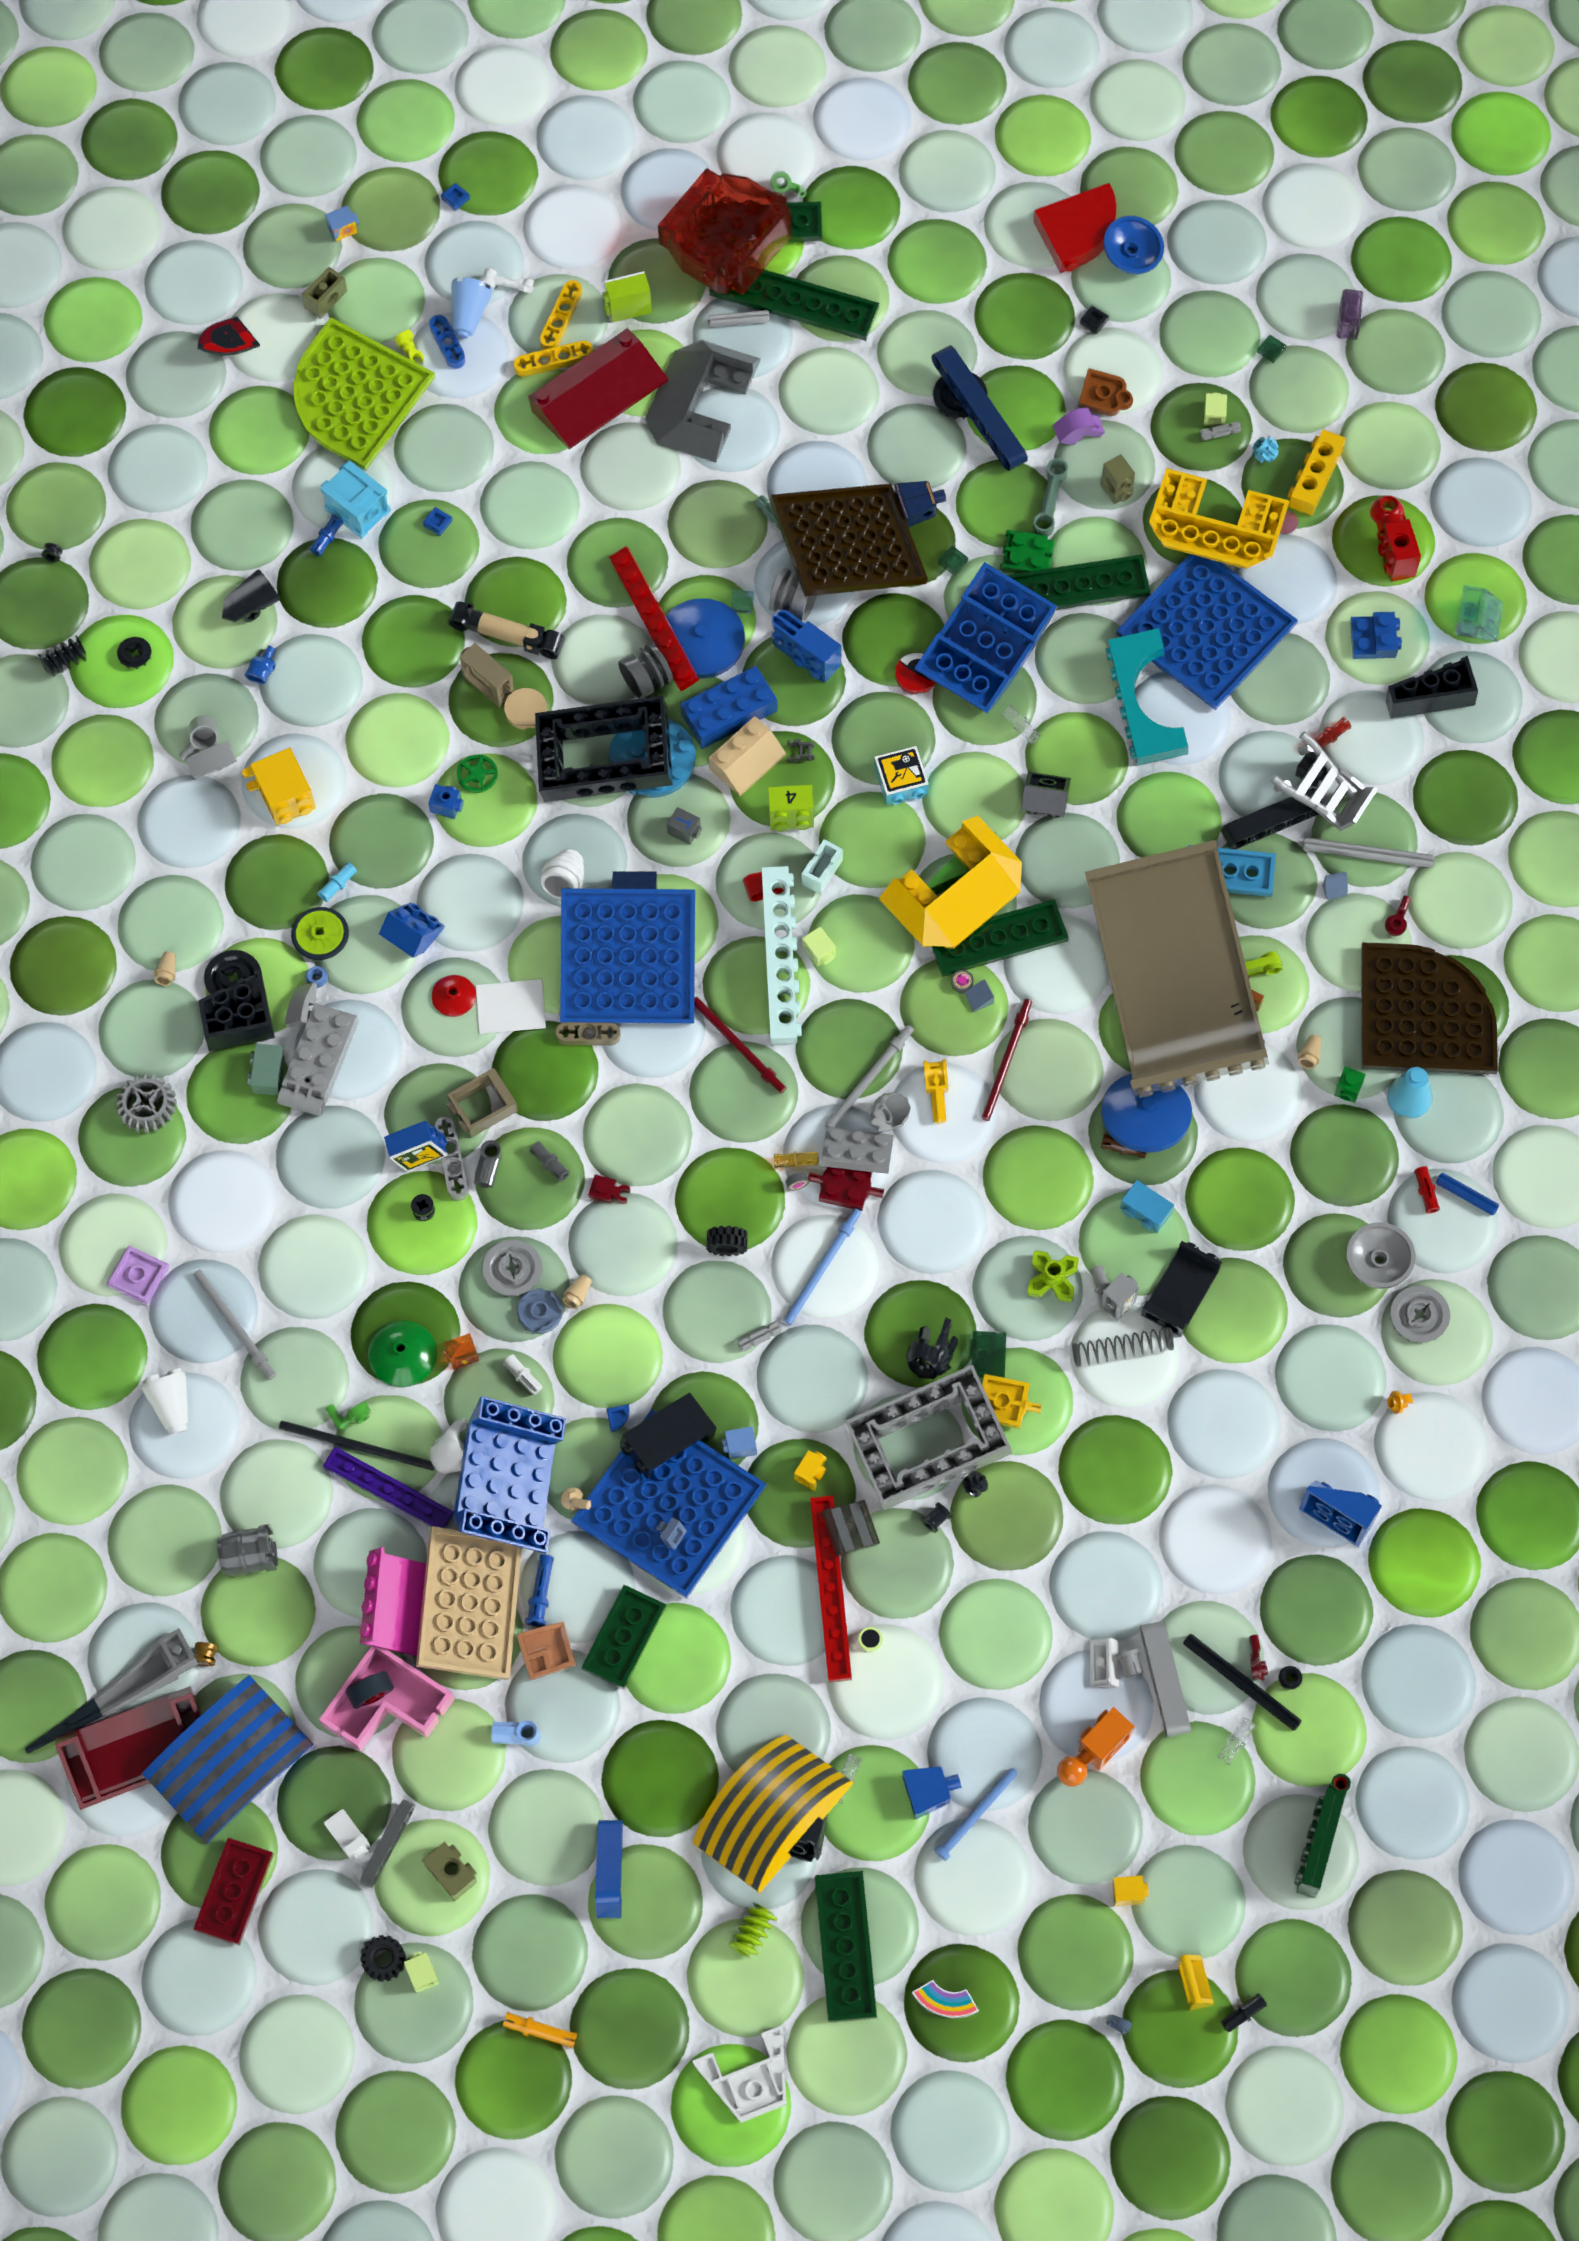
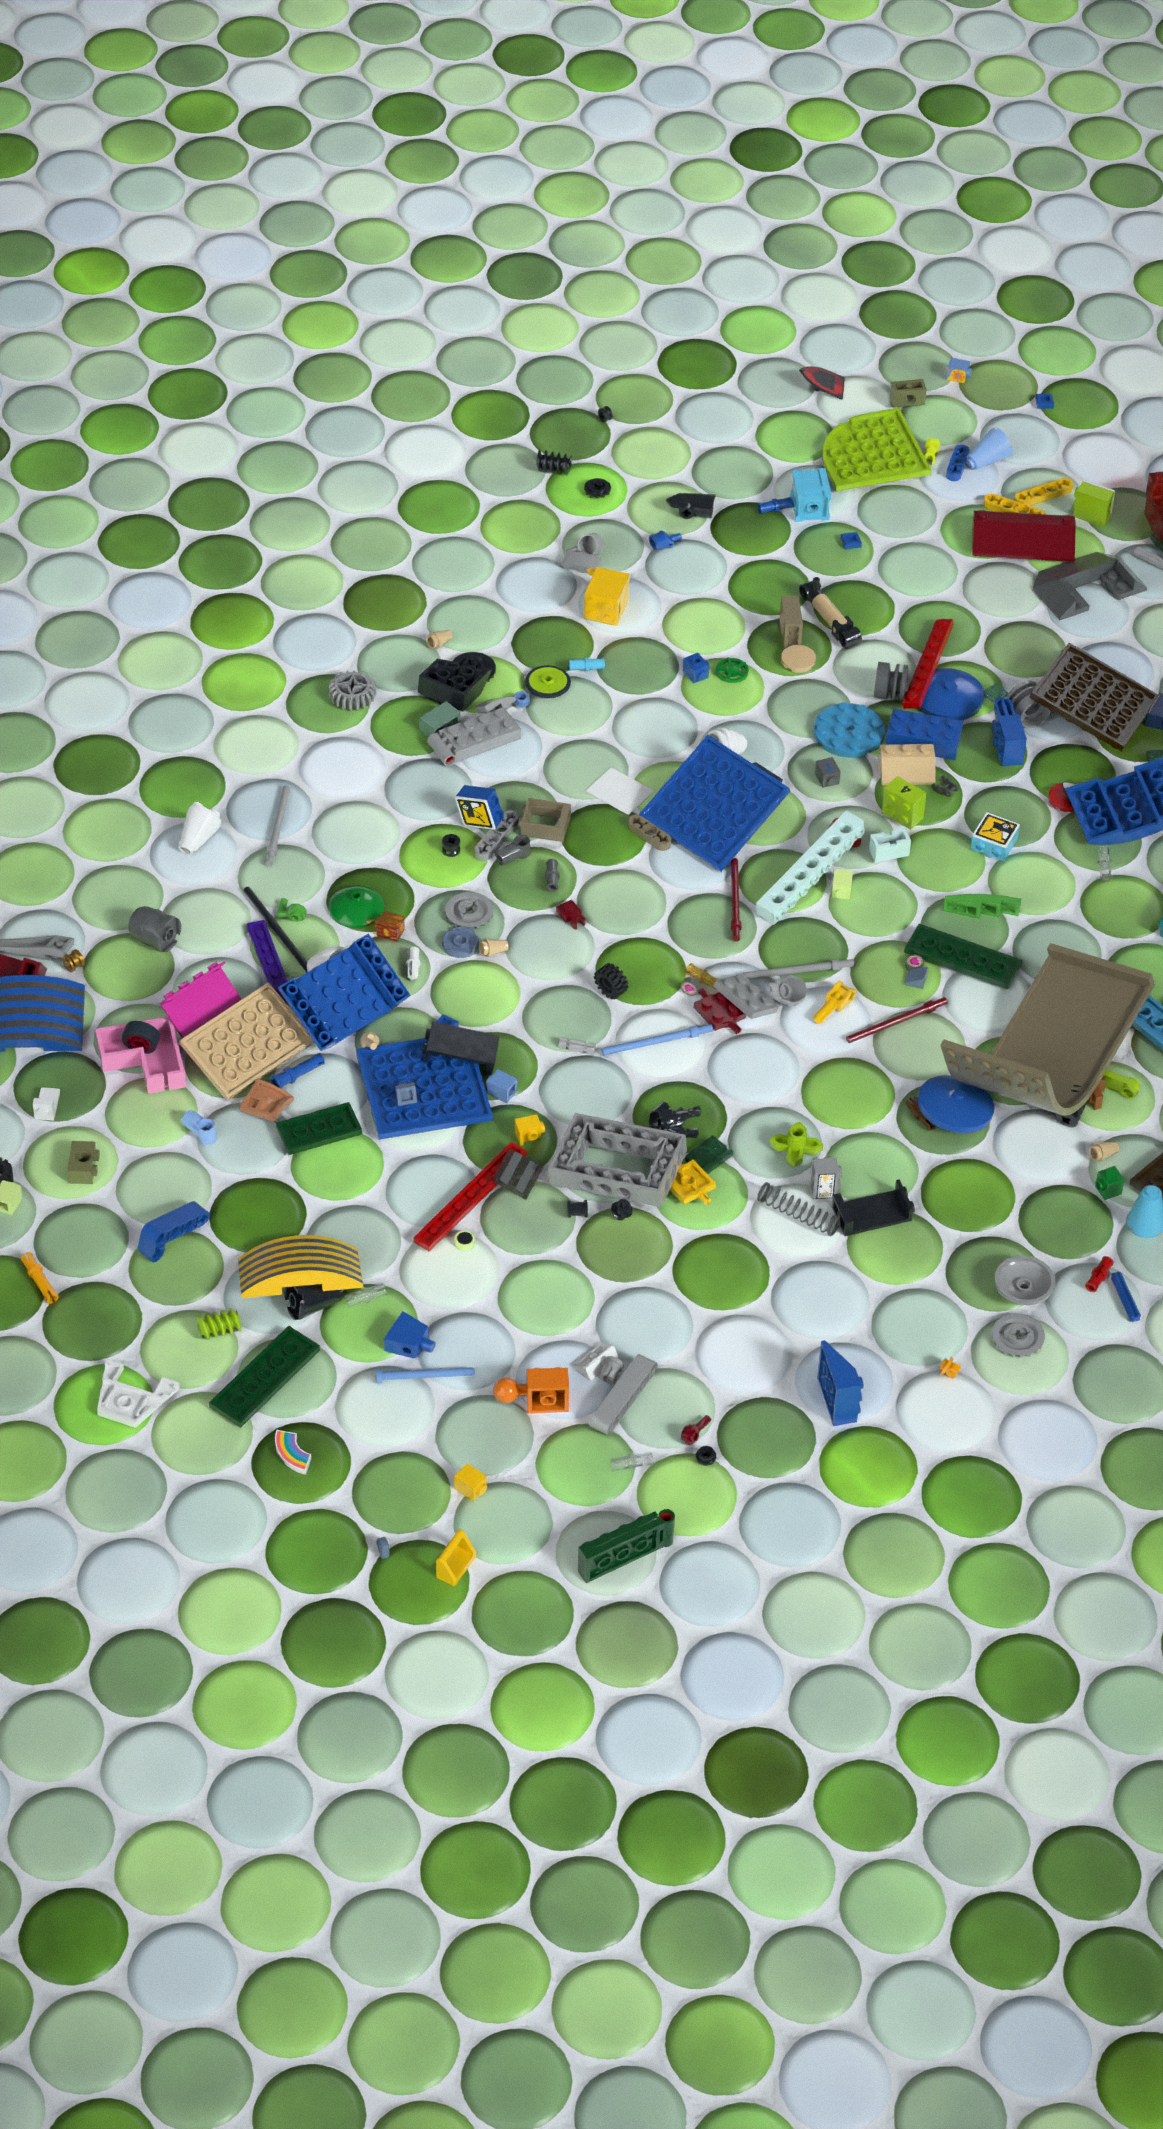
camera: 40 degrees right, 20 degrees down
(138, 1275) = (252, 766): lavender tile -> none
(387, 1843) = (37, 1130): dark grey beam -> none
(411, 929) = (602, 712): blue slope -> none
(455, 1004) = (591, 763): red dish -> none
(492, 280) = (1021, 450): white brick -> none
(599, 720) = (860, 698): black brick -> none
(969, 902) = (963, 917): yellow slope -> none
(1045, 794) = (1078, 906): slope -> none
(1146, 1207) = (899, 1151): dark azure brick -> none
(1242, 1682) = (672, 1435): black axle -> none
(1243, 2013) = (467, 1602): black axle -> none

